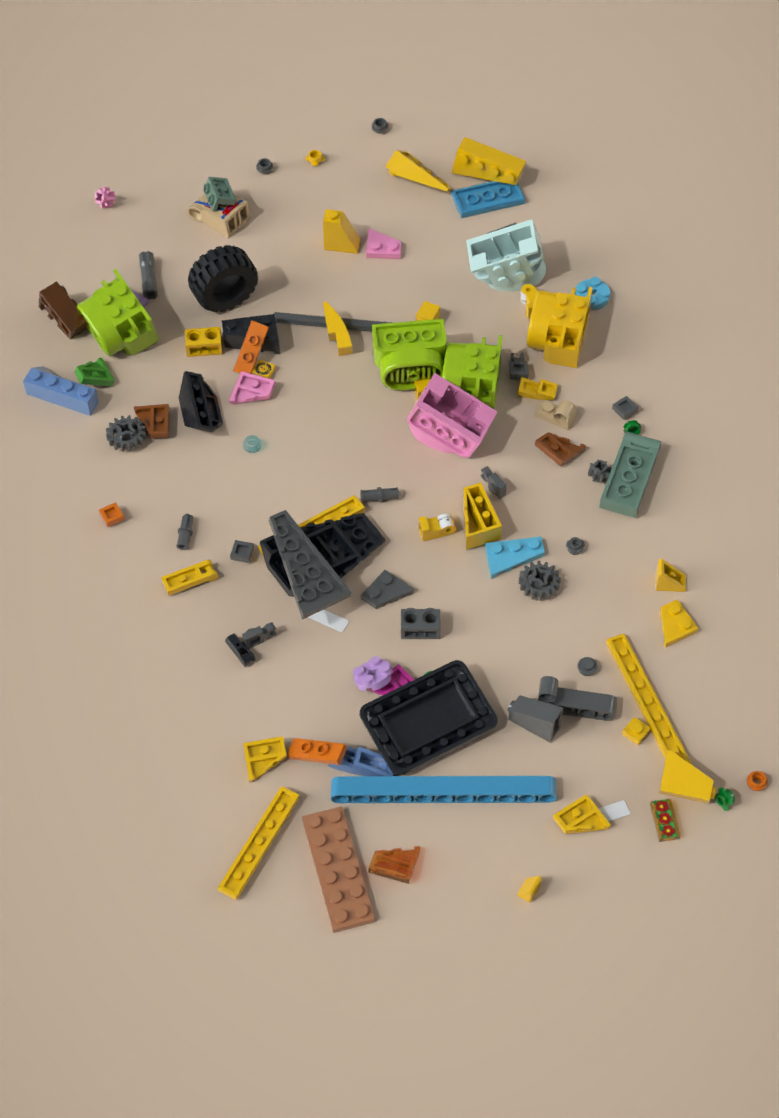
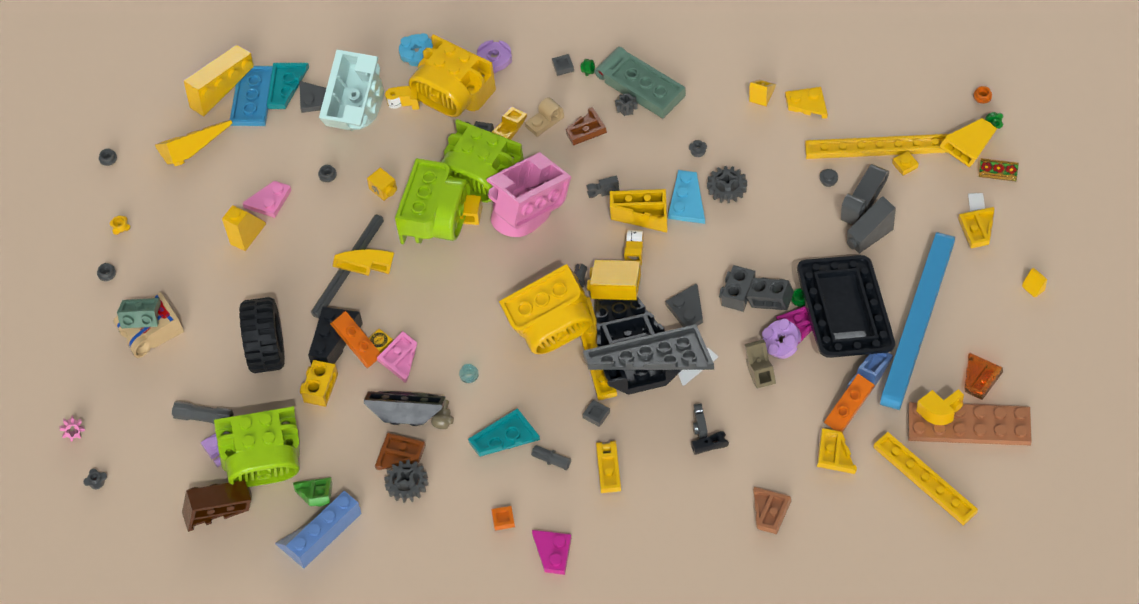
camera: 65 degrees left, 0 degrees up
(65, 230) = (99, 482): none -> dark grey plate
(91, 562) = (552, 550): none -> dark pink wing
(182, 719) = (770, 509): none -> nougat wing
(197, 489) = (504, 434): none -> teal wing
(199, 439) = (442, 418): none -> dark tan piece
(324, 473) = (549, 311): none -> yellow brick
(332, 830) = (937, 410): none -> yellow brick
(336, 667) = (759, 364): none -> dark tan brick
(388, 520) = (614, 279): none -> yellow brick
(421, 650) = (770, 293): none -> dark grey brick
(425, 275) = (327, 169): none -> dark grey plate
(507, 212) = (284, 83): none -> teal wing
(608, 360) = (501, 48): none -> lavender plate

